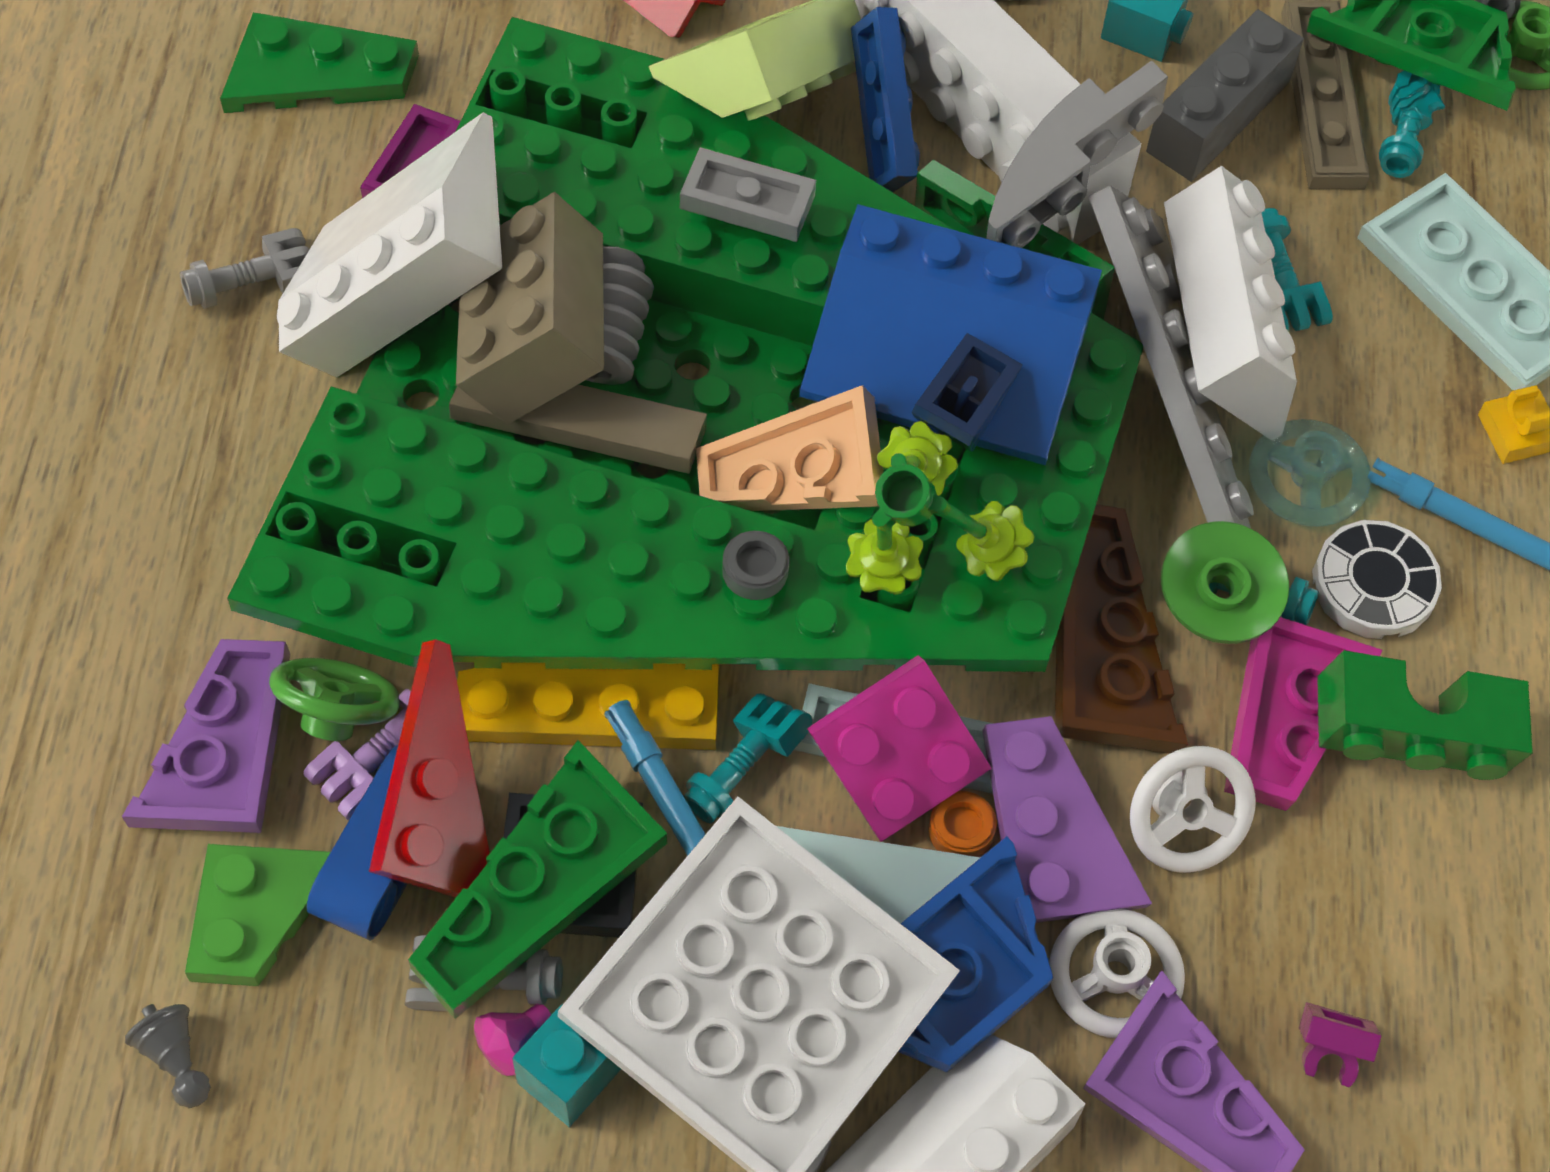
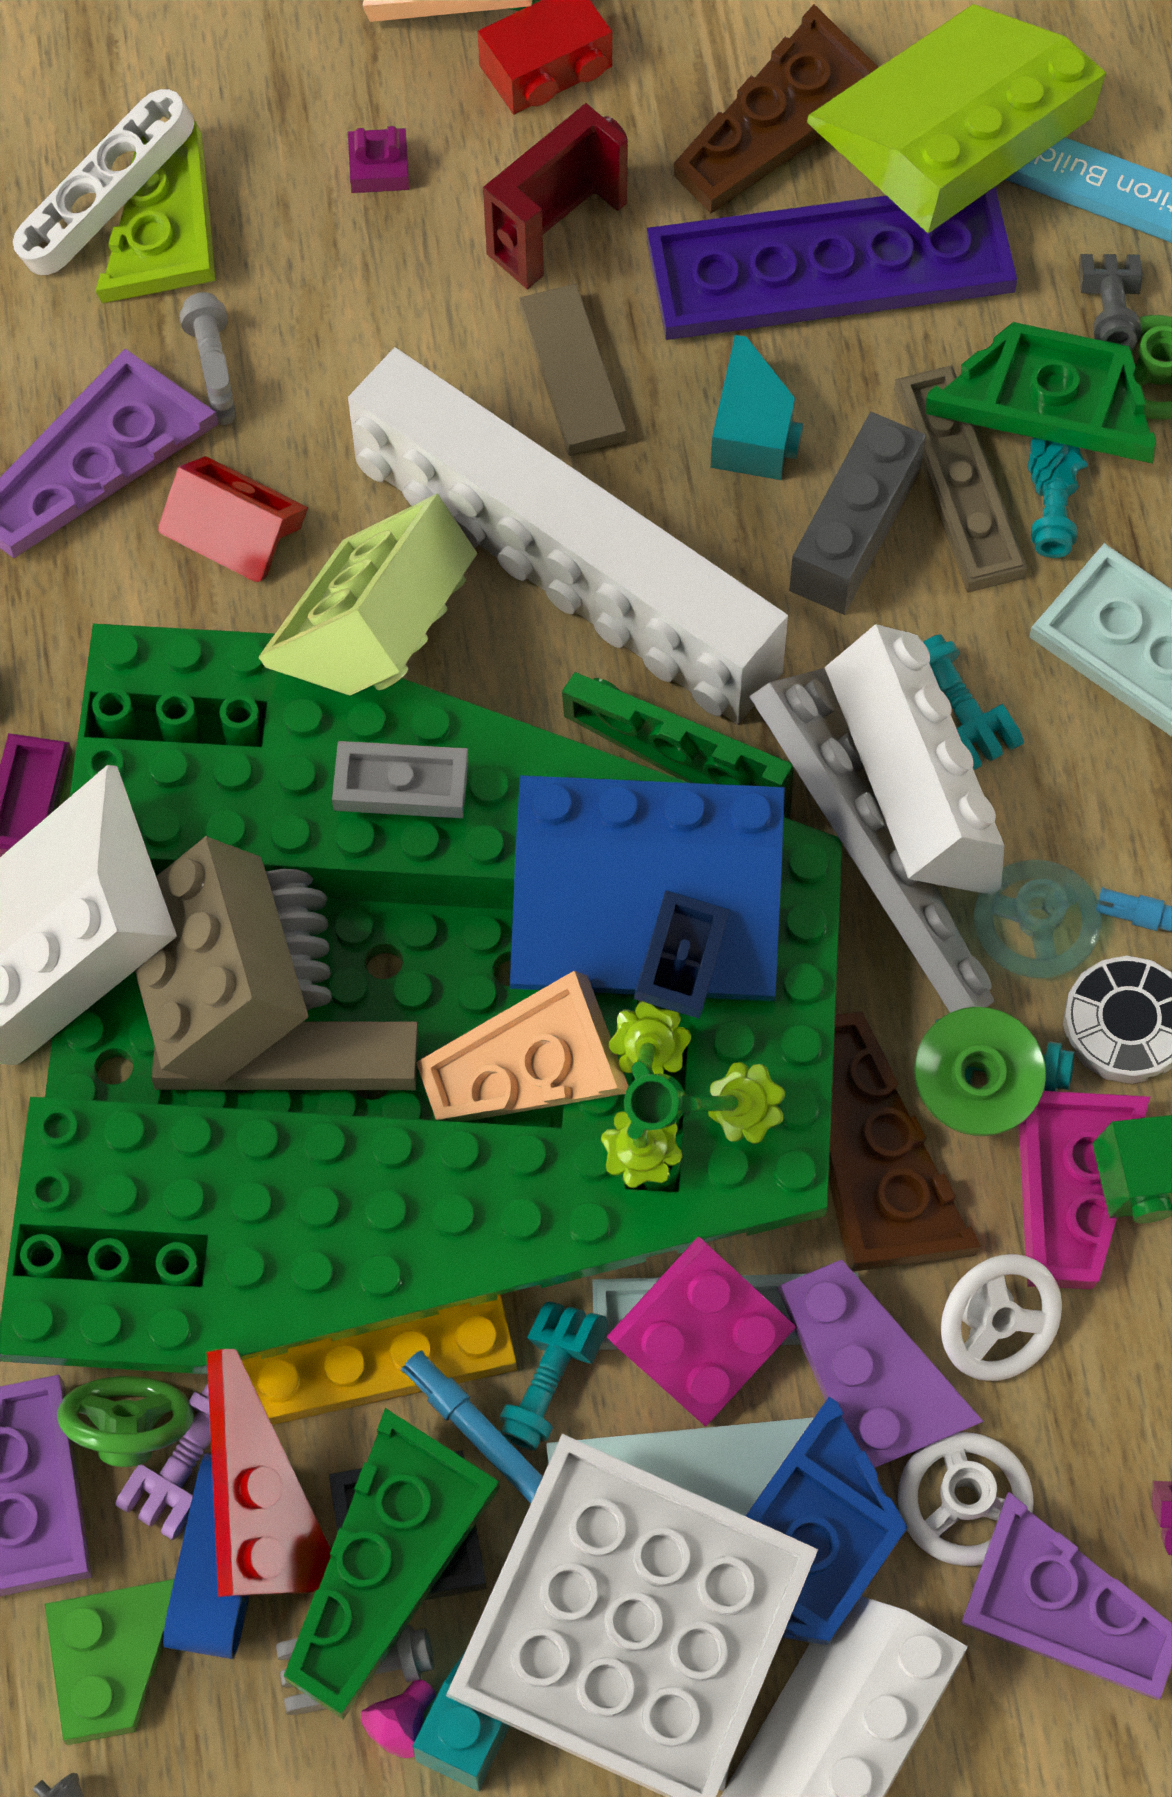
camera: 10 degrees left, 5 degrees up
(755, 565) = (515, 1186): dark grey tile -> none
(885, 98) = (507, 615): blue plate -> none
(963, 824) = (781, 1388): orange tile -> none
(1056, 158) = (703, 673): light grey slope -> none

